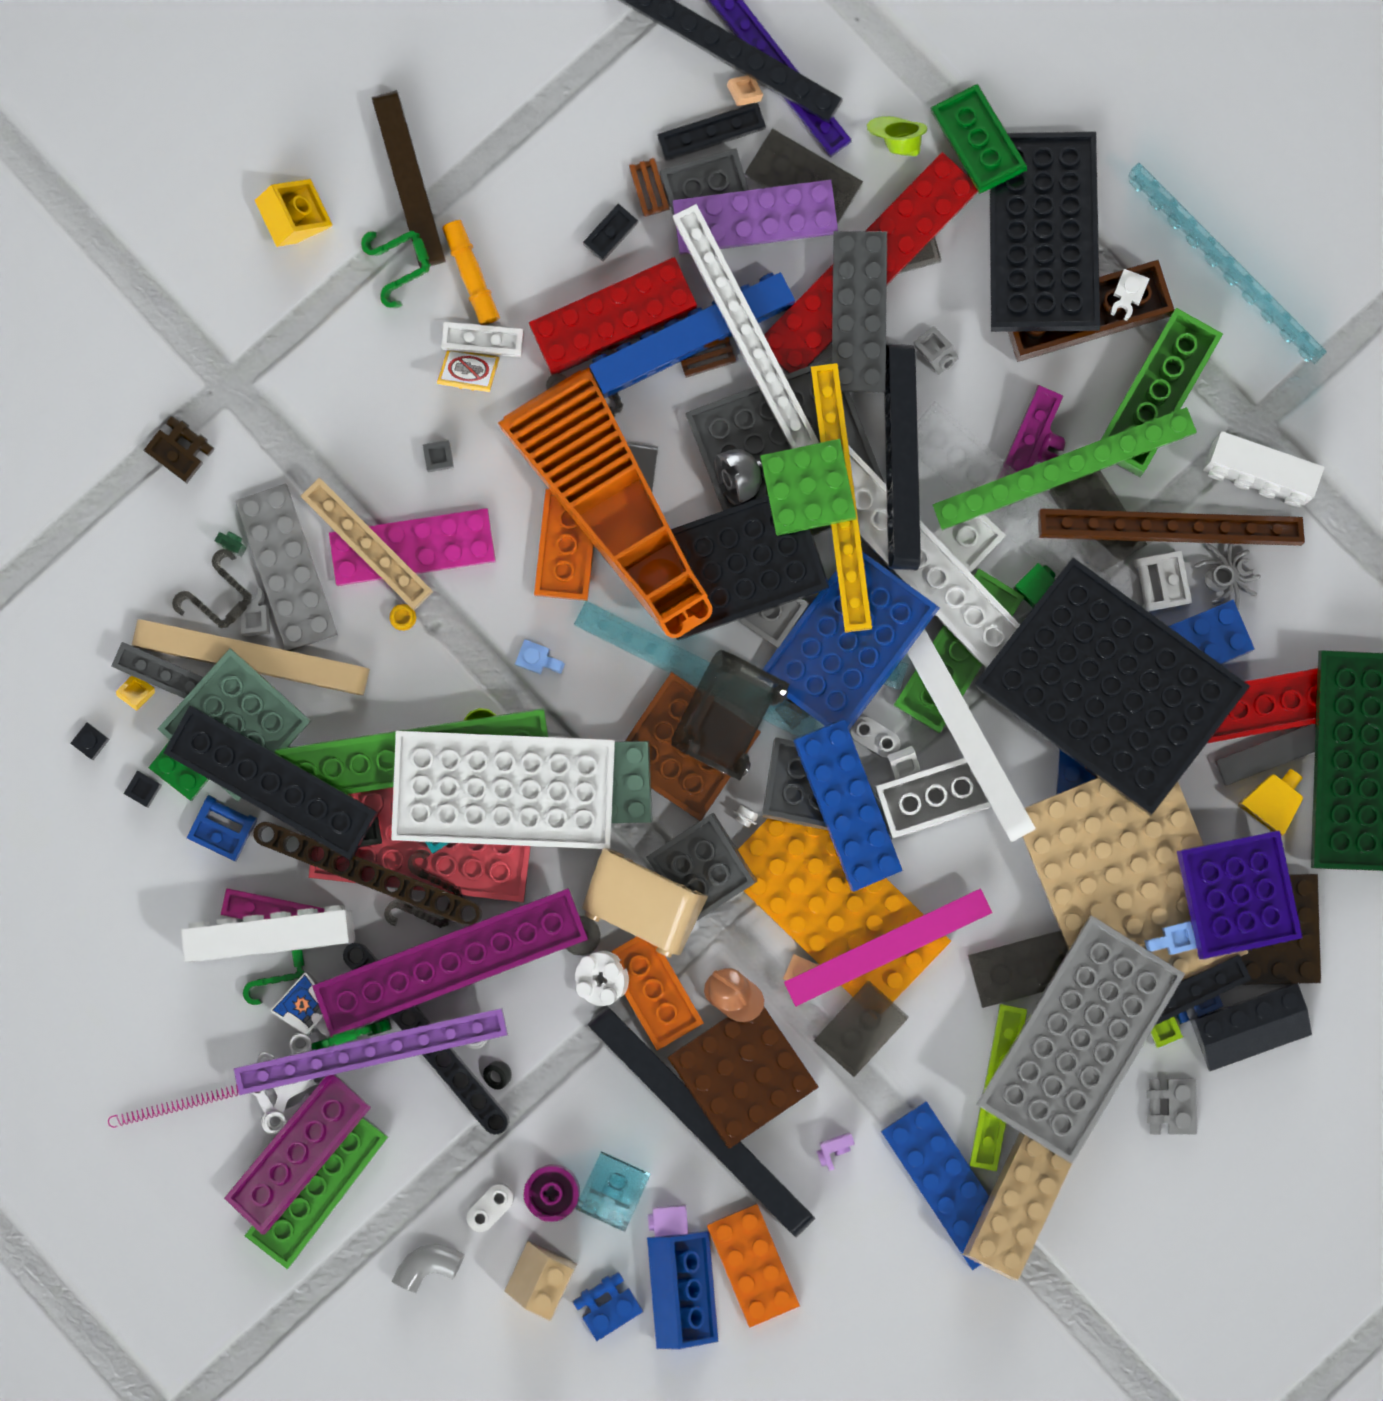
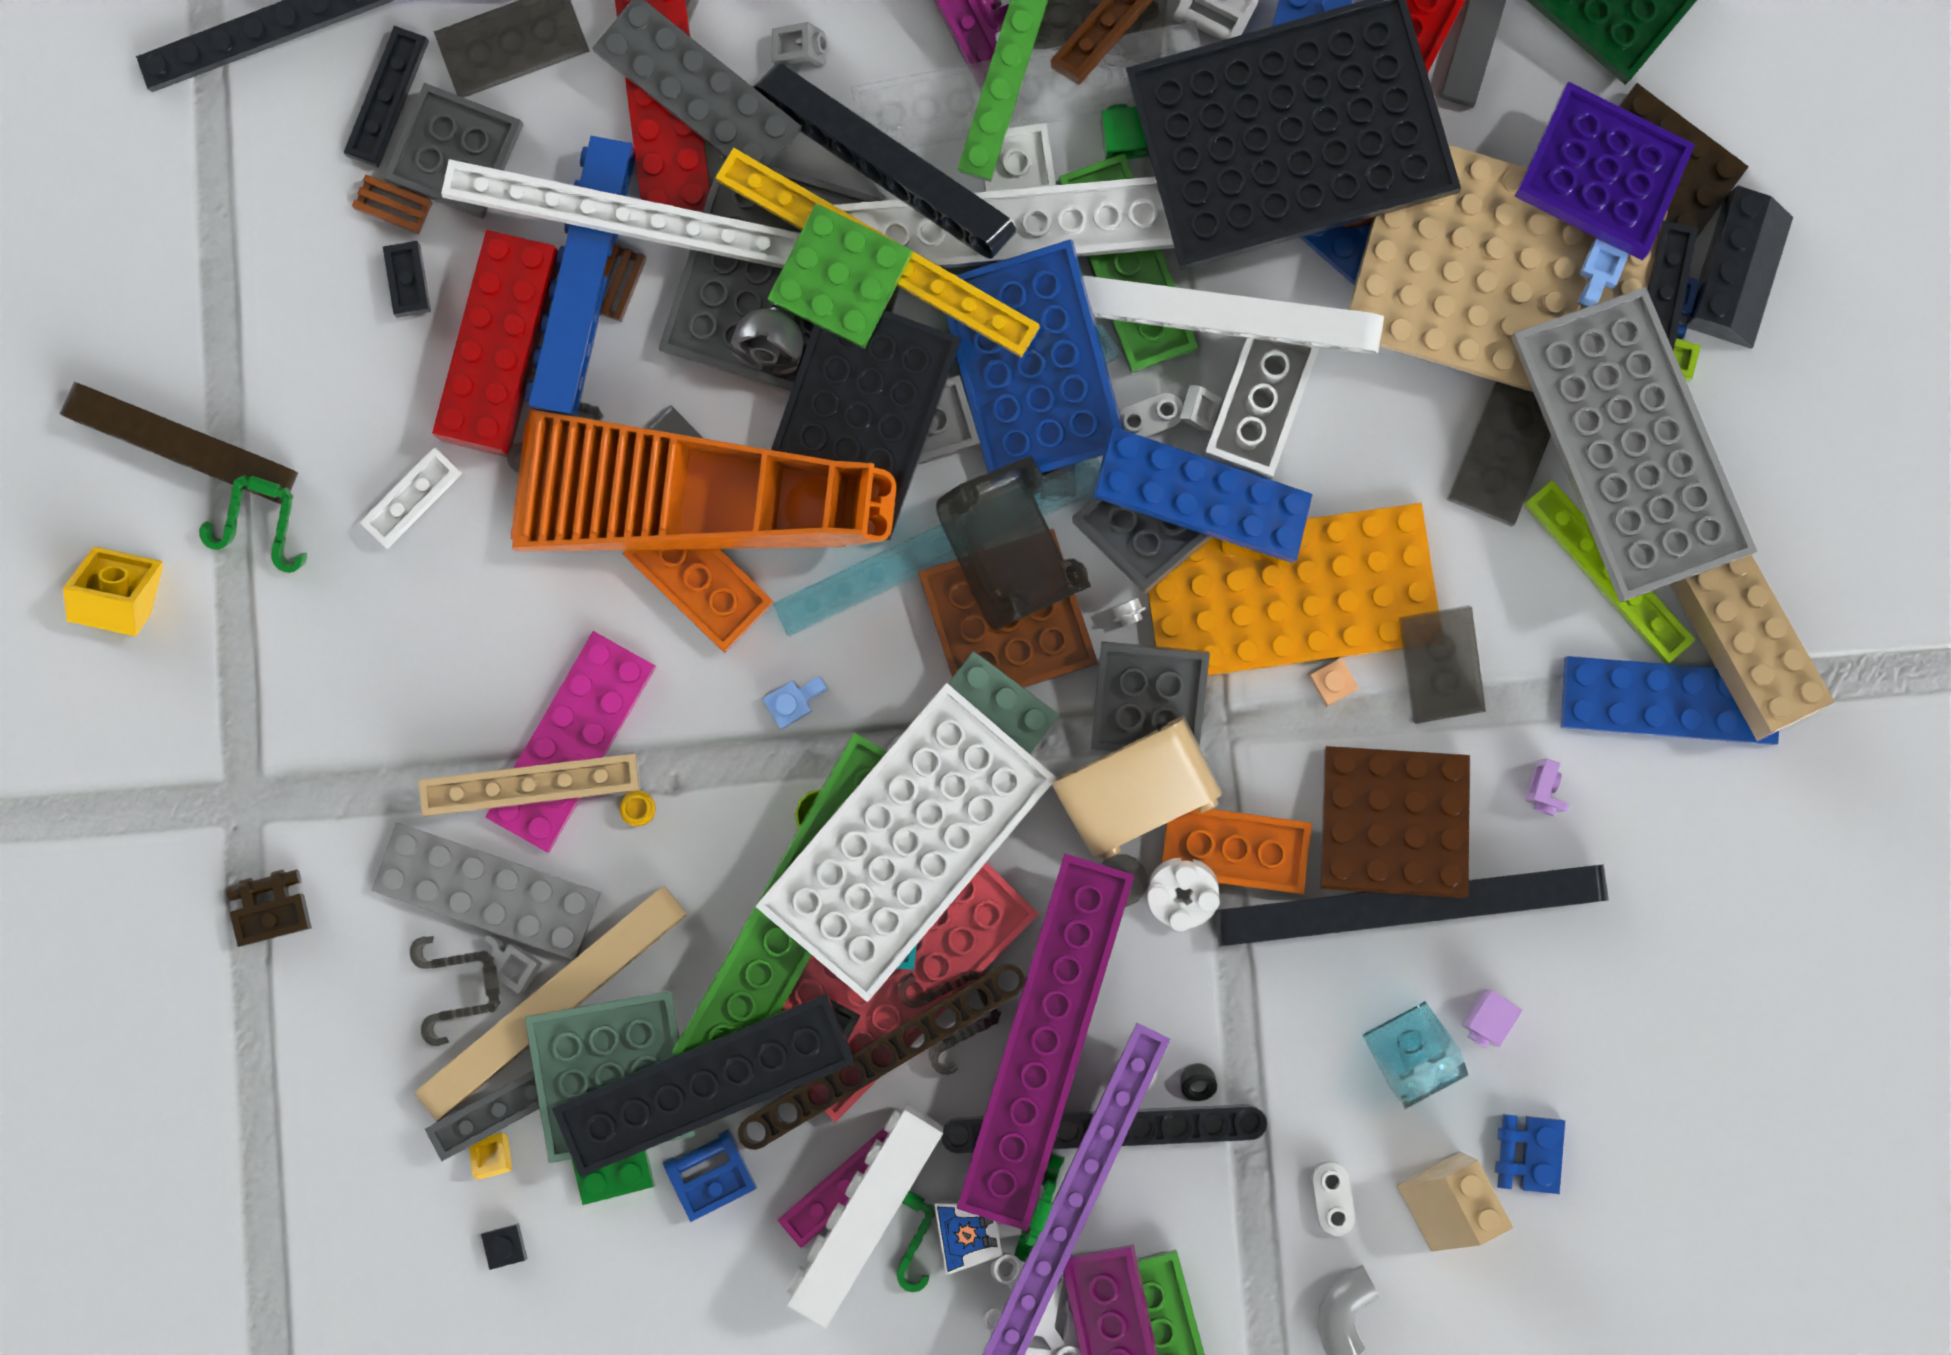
camera: 60 degrees left, 0 degrees up
(142, 789) = (600, 1229): black plate -> none
(231, 542) = (412, 928): clear green plate -> none
(438, 456) = (496, 639): dark grey plate -> none
(468, 370) = (432, 537): piece -> none
(470, 272) = (330, 455): light orange piece -> none
(540, 1204) = (1390, 1114): magenta brick -> none
(682, 1290) = (1576, 1063): blue slope -> none
(734, 995) = (1306, 768): nougat piece -> none
(744, 90) = (371, 28): light nougat plate -> none
(753, 1265) = (1602, 967): orange plate -> none
(765, 214) = (518, 105): medium lavender plate -> none
(888, 947) = (1380, 571): dark pink tile -> none
(1181, 1106) = (1766, 403): light grey plate -> none
(1274, 801) = (1529, 69): yellow torso -> none

